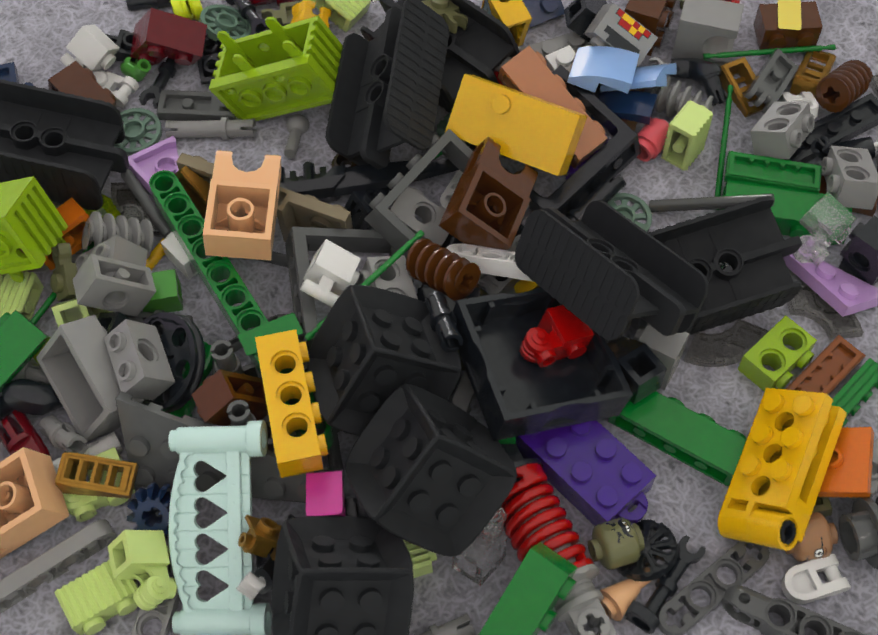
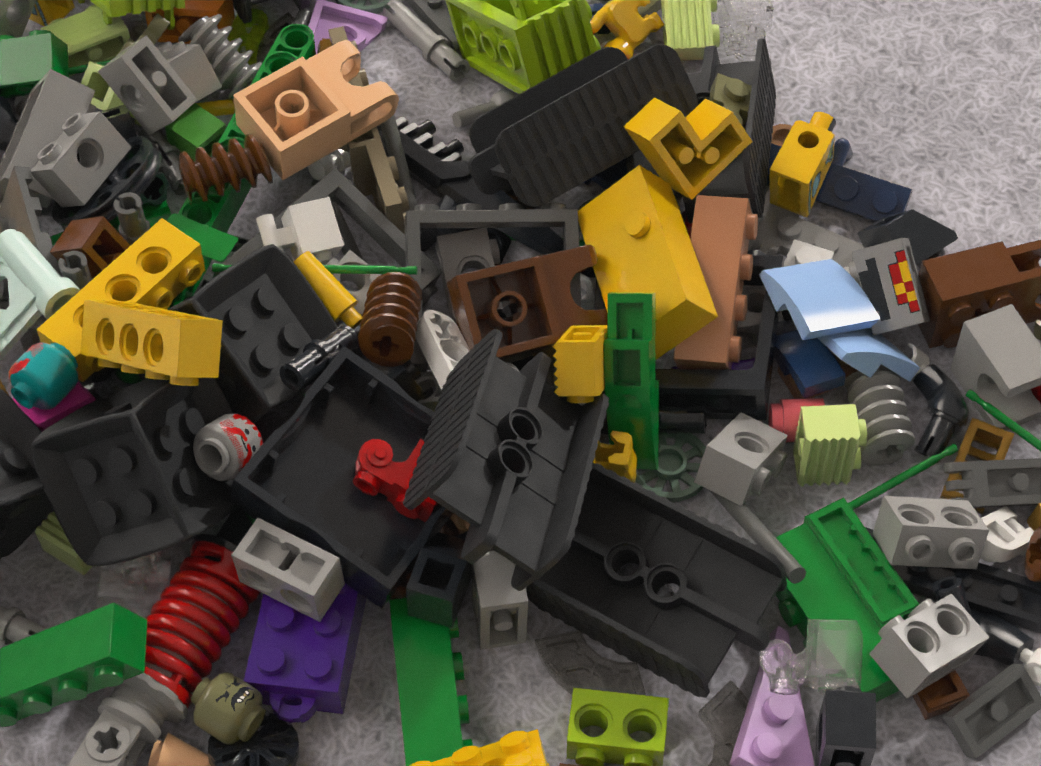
camera: 50 degrees right, 5 degrees down
(240, 281) = (224, 167): none -> reddish brown piece
(315, 483) = (43, 376): none -> teal head
(401, 285) = (329, 290): none -> yellow cylinder
(413, 363) = (152, 341): none -> yellow brick
(467, 412) = (226, 446): none -> light grey head
(469, 42) = (688, 148): none -> yellow brick
(563, 192) = (580, 363): none -> yellow brick
(571, 439) = (288, 569): none -> light grey brick
(579, 171) = (631, 373): none -> green slope
(661, 179) = (742, 459): none -> light grey brick

